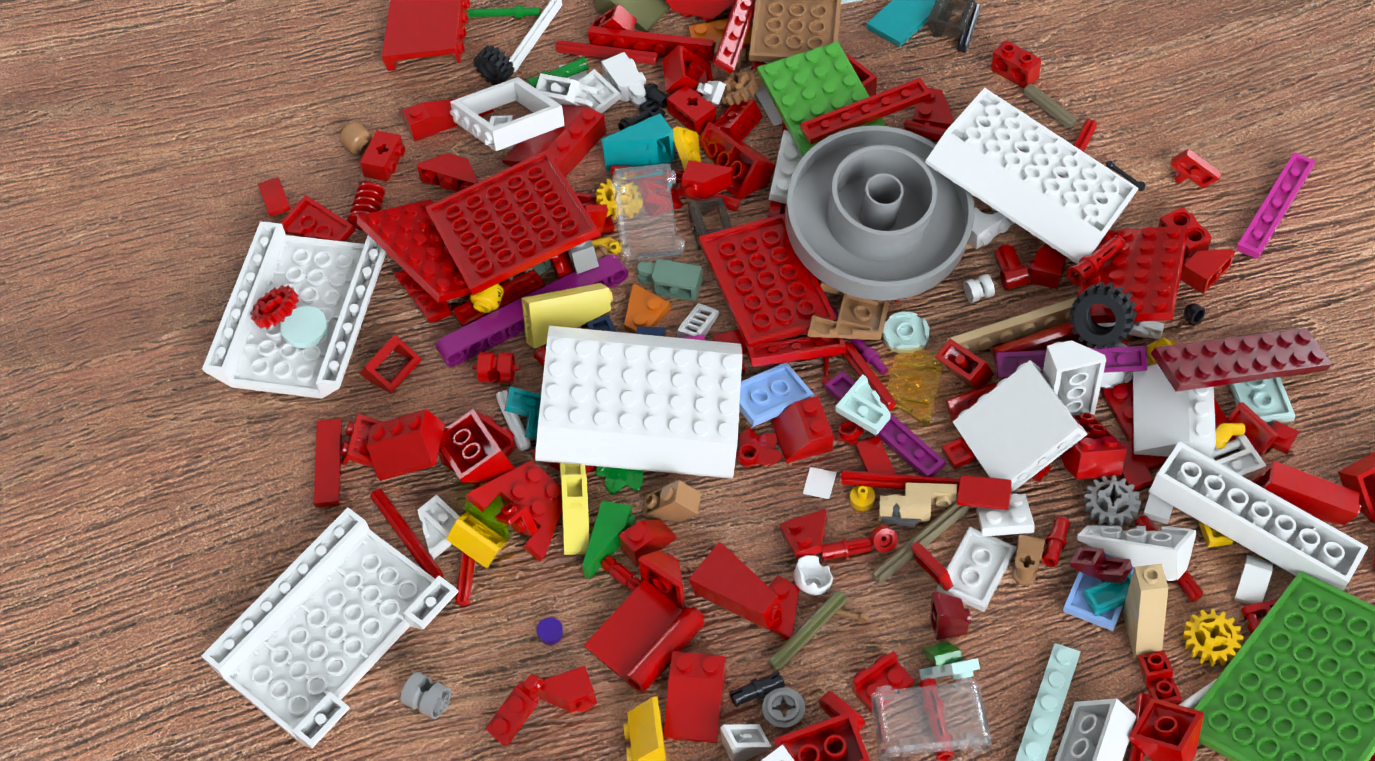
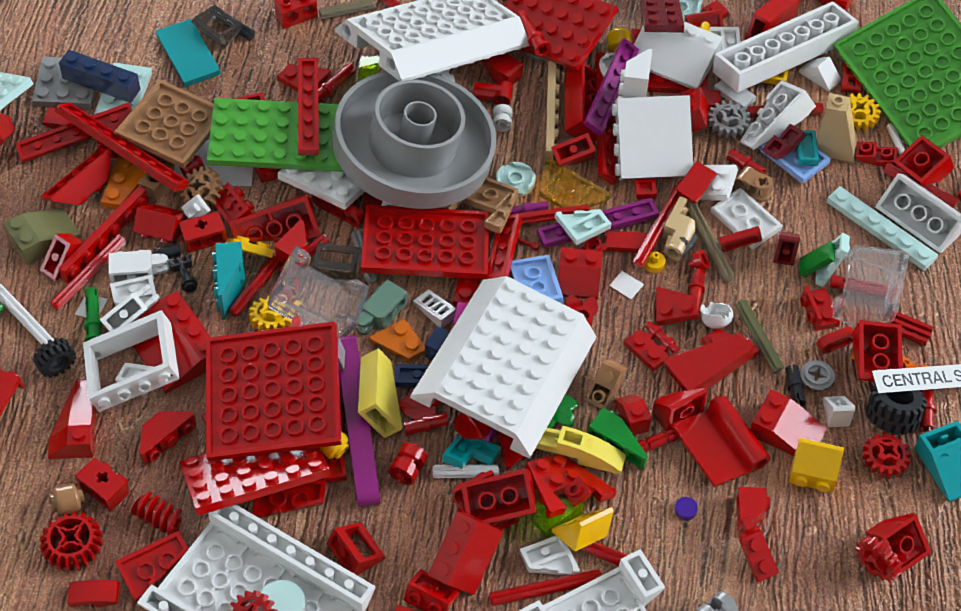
camera: 75 degrees left, 0 degrees up
(321, 155) = (70, 529): none -> red gear
(740, 526) = (647, 350): none -> red plate
(1089, 329) = (607, 44): black tyre -> none

